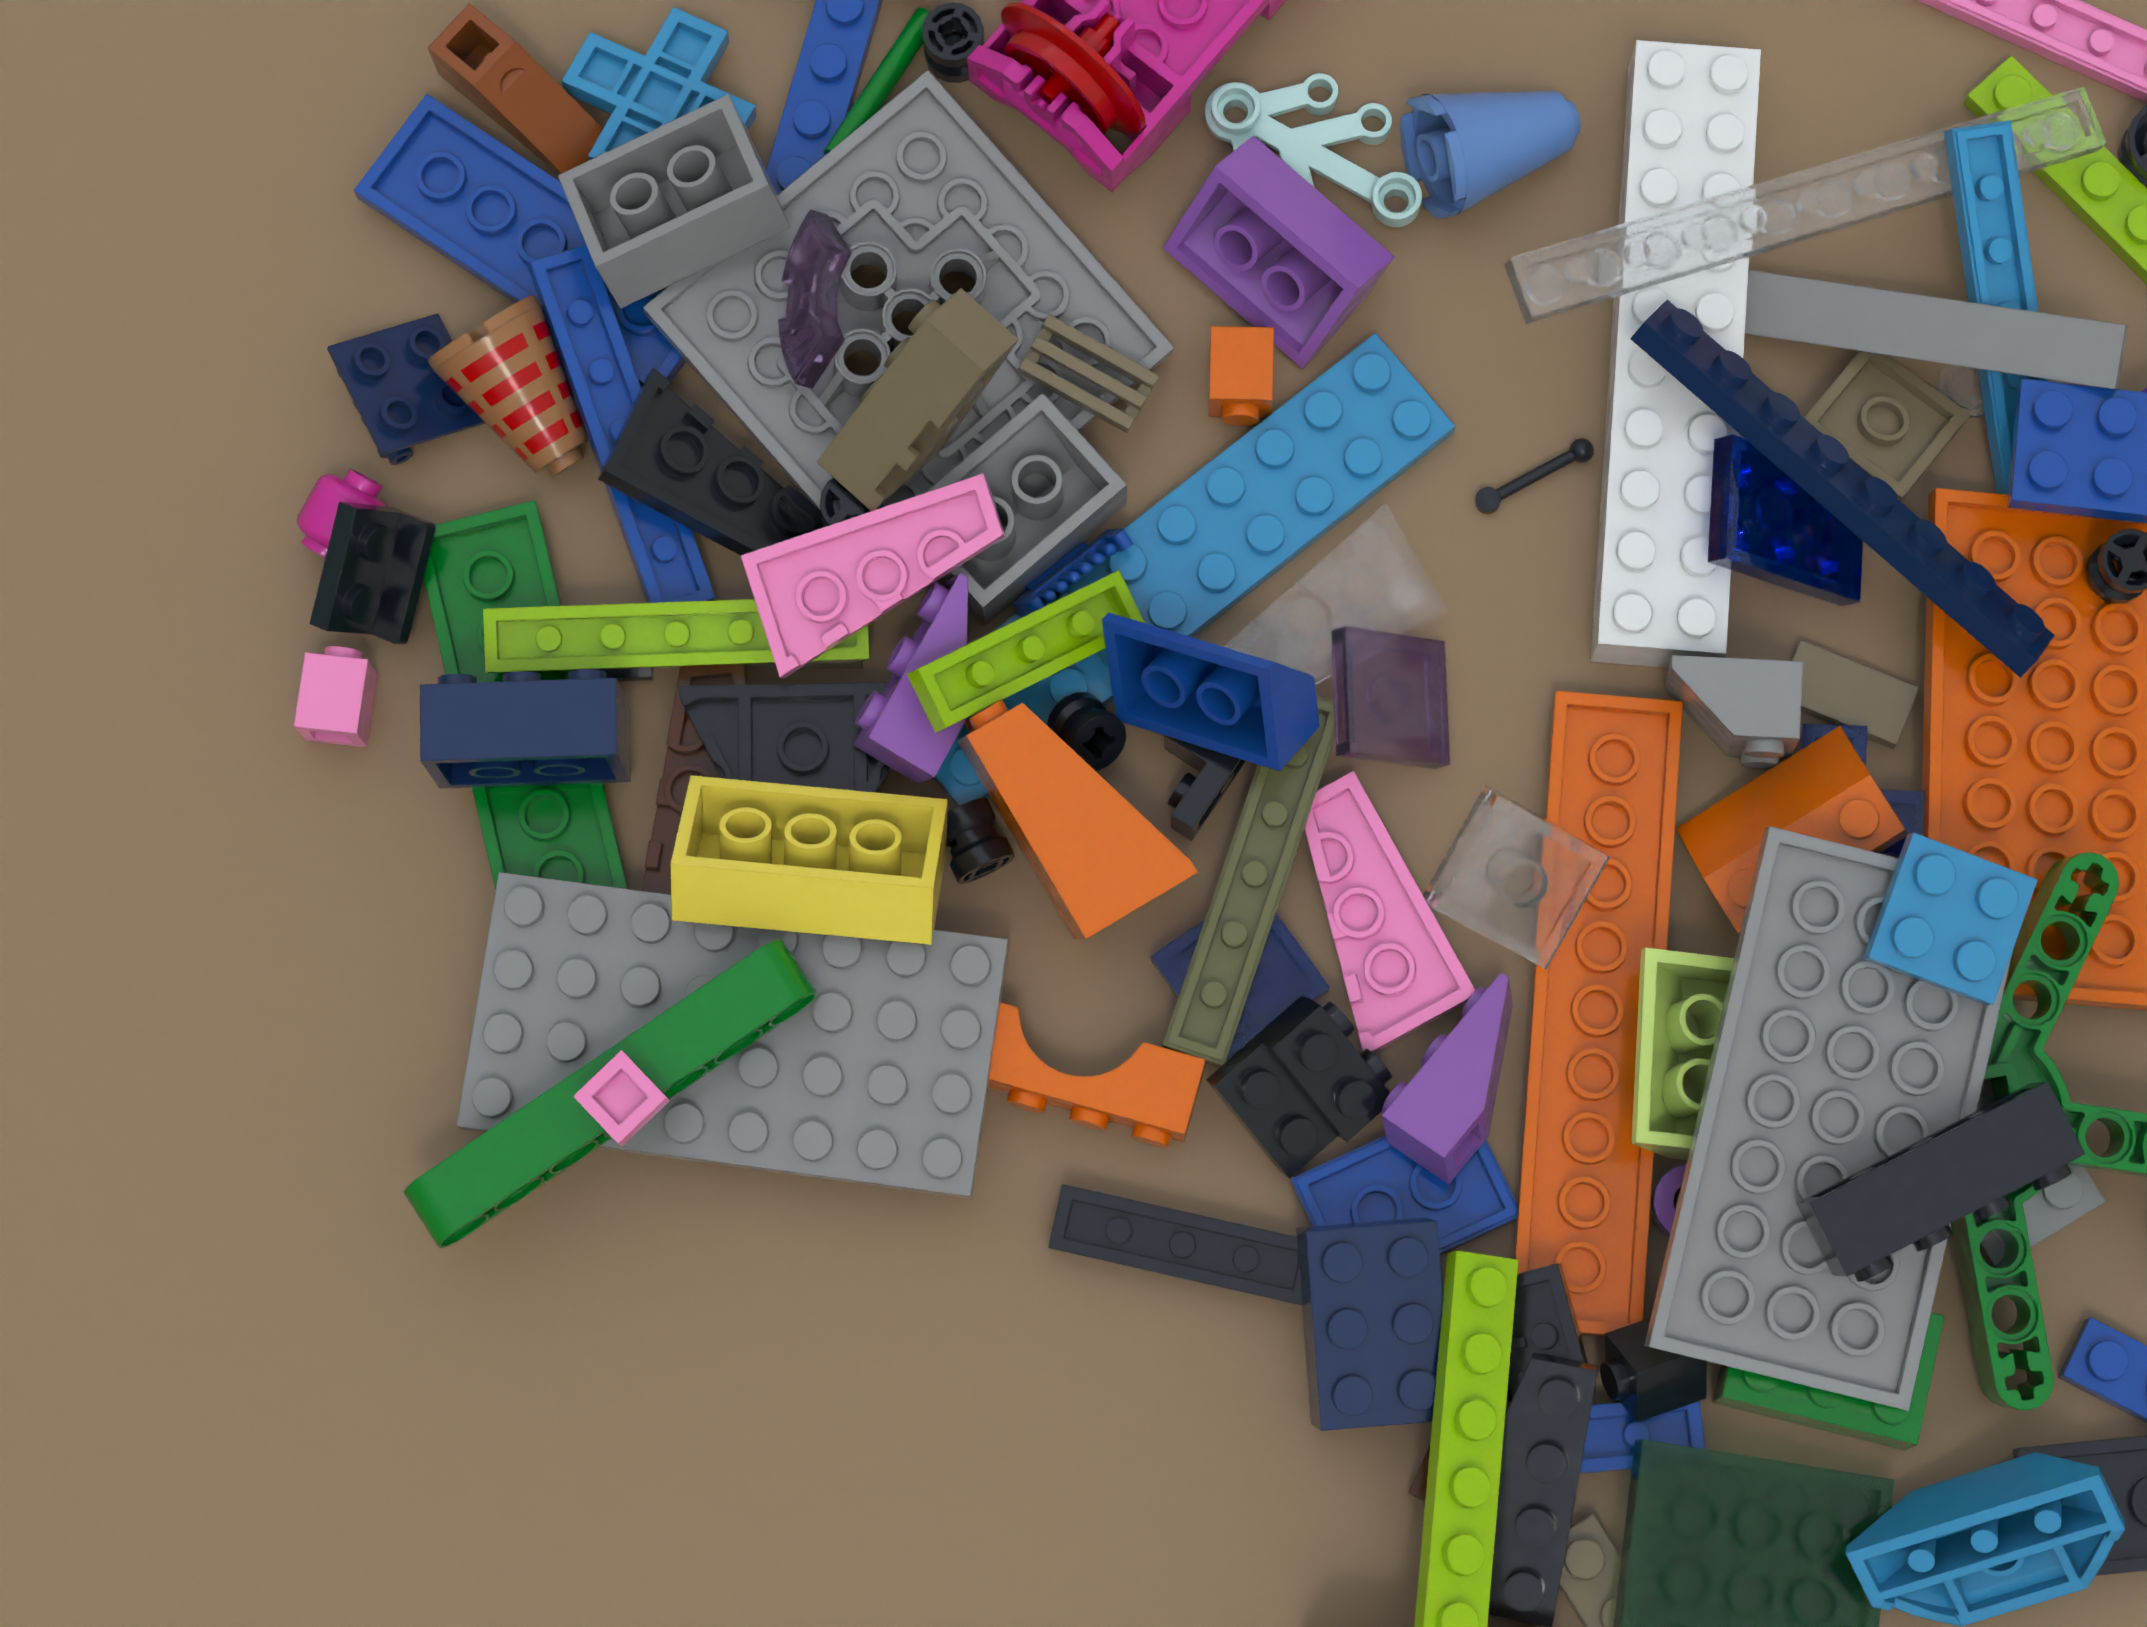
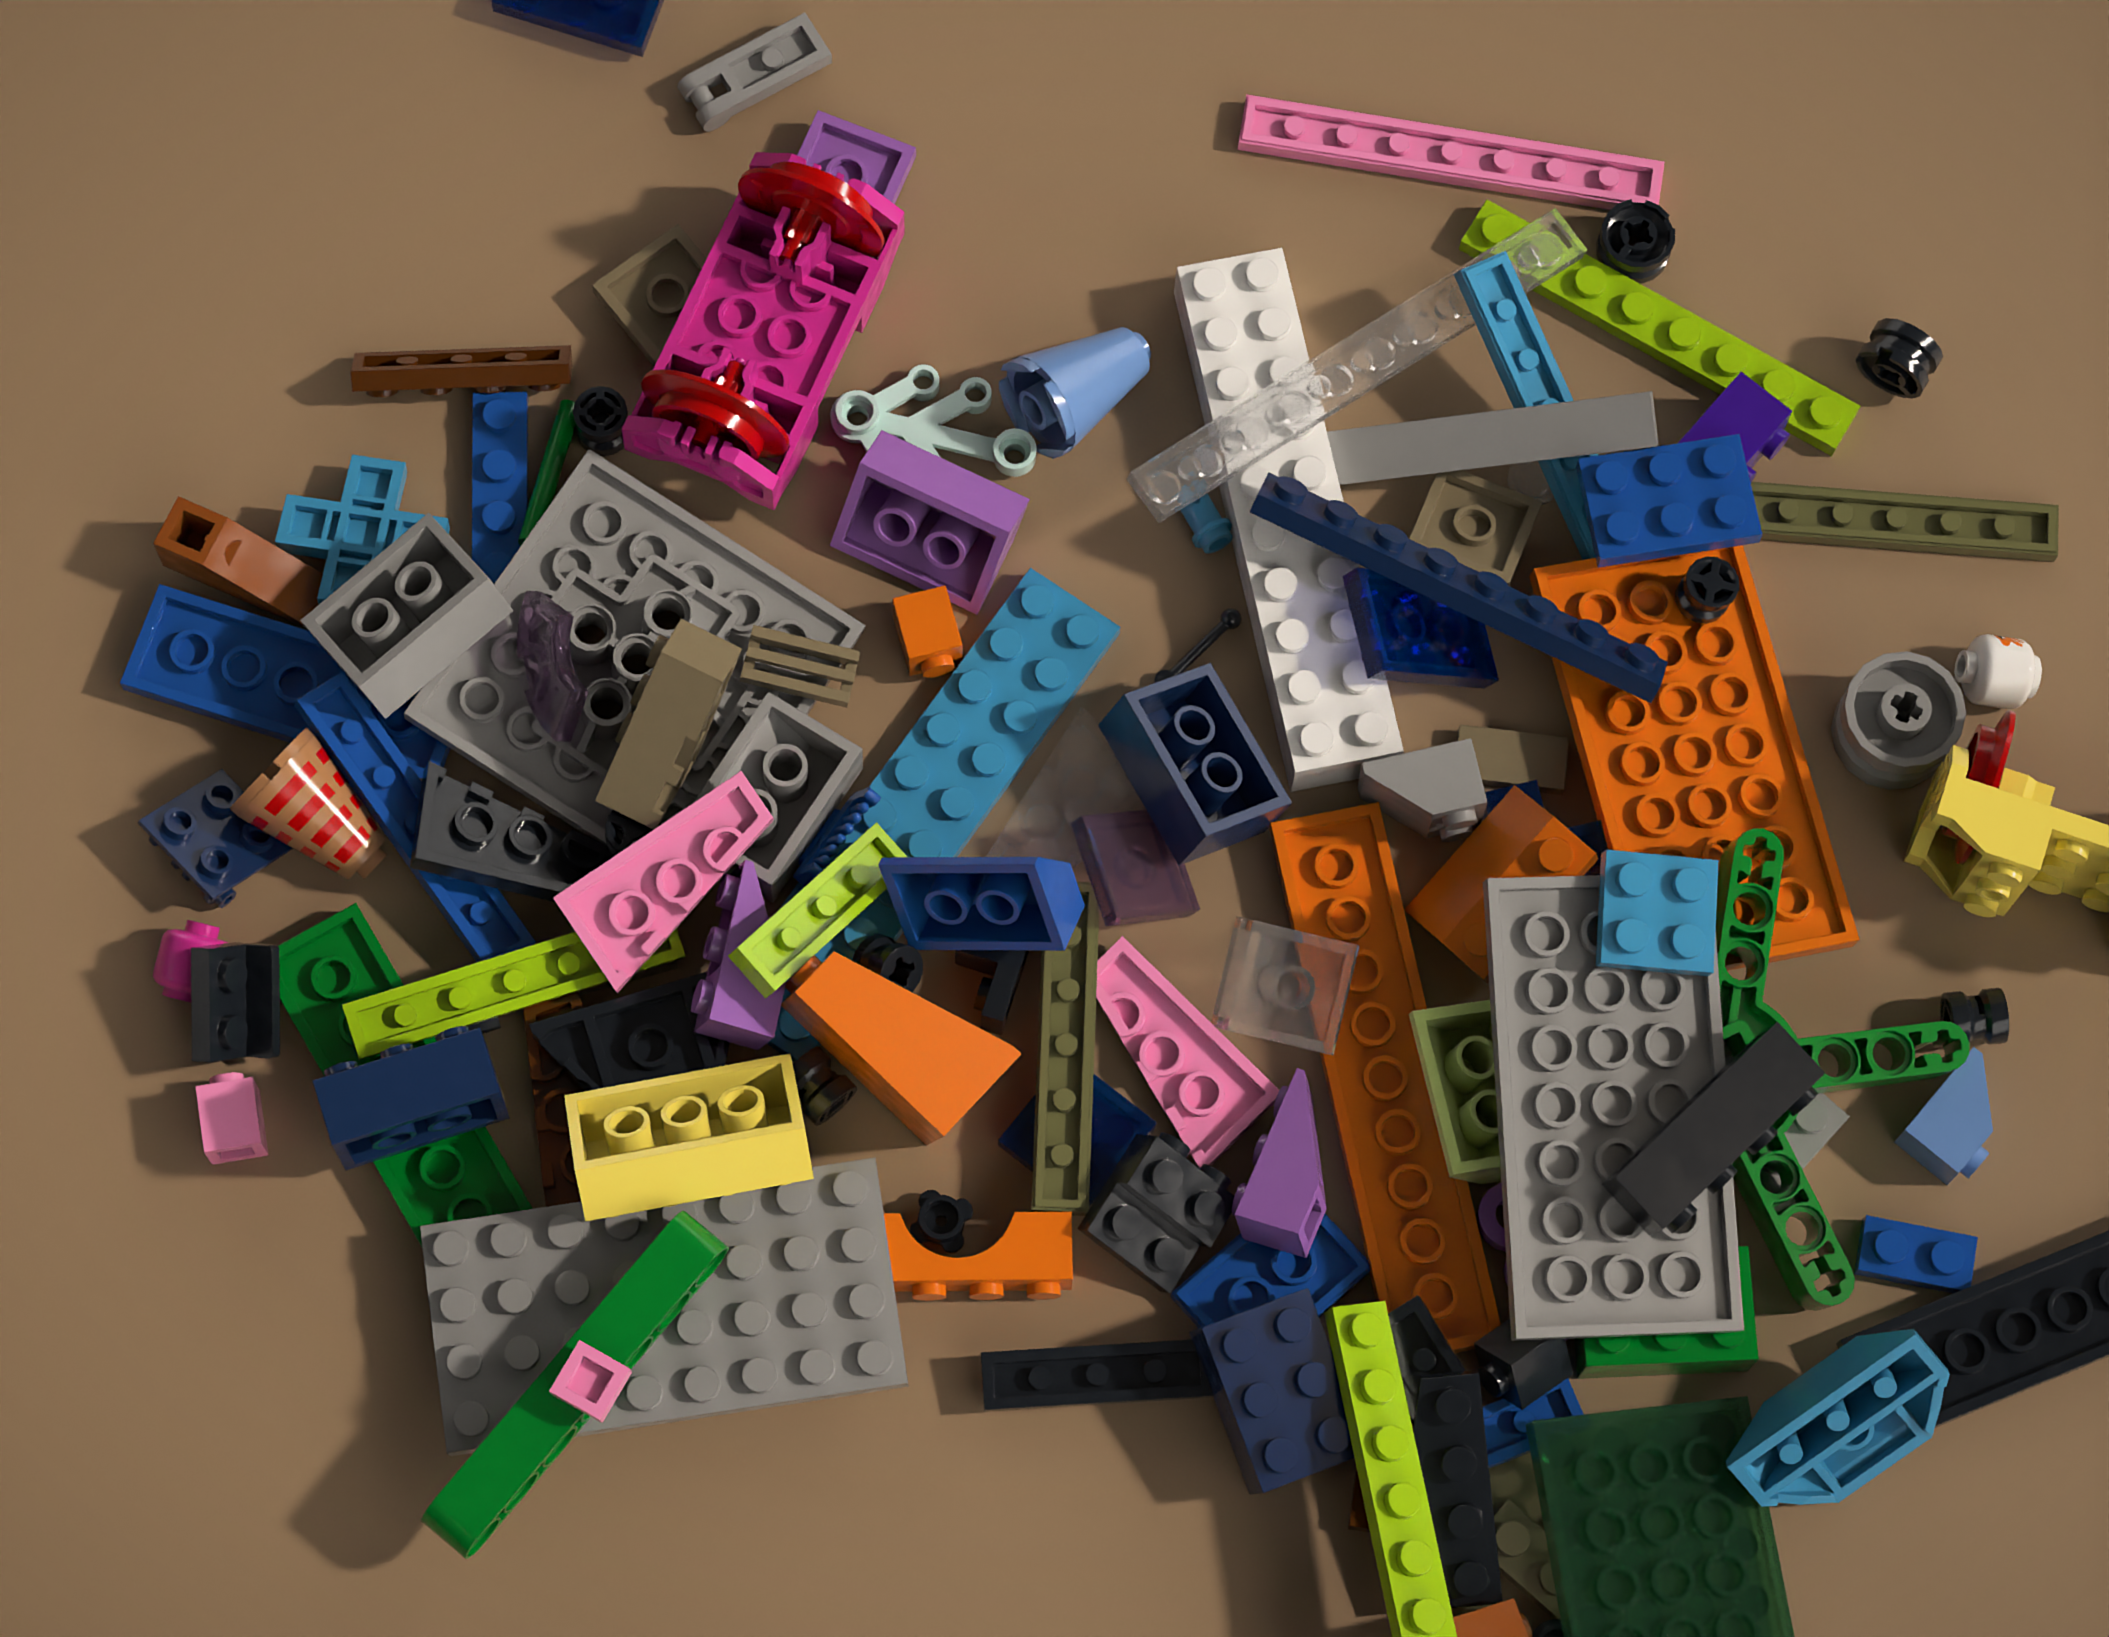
camera: 25 degrees left, 5 degrees down
(1062, 1008) = (933, 1206): none -> black plate
(1489, 602) = (1194, 763): none -> dark blue brick
(1587, 343) = (1208, 526): none -> dark azure pin

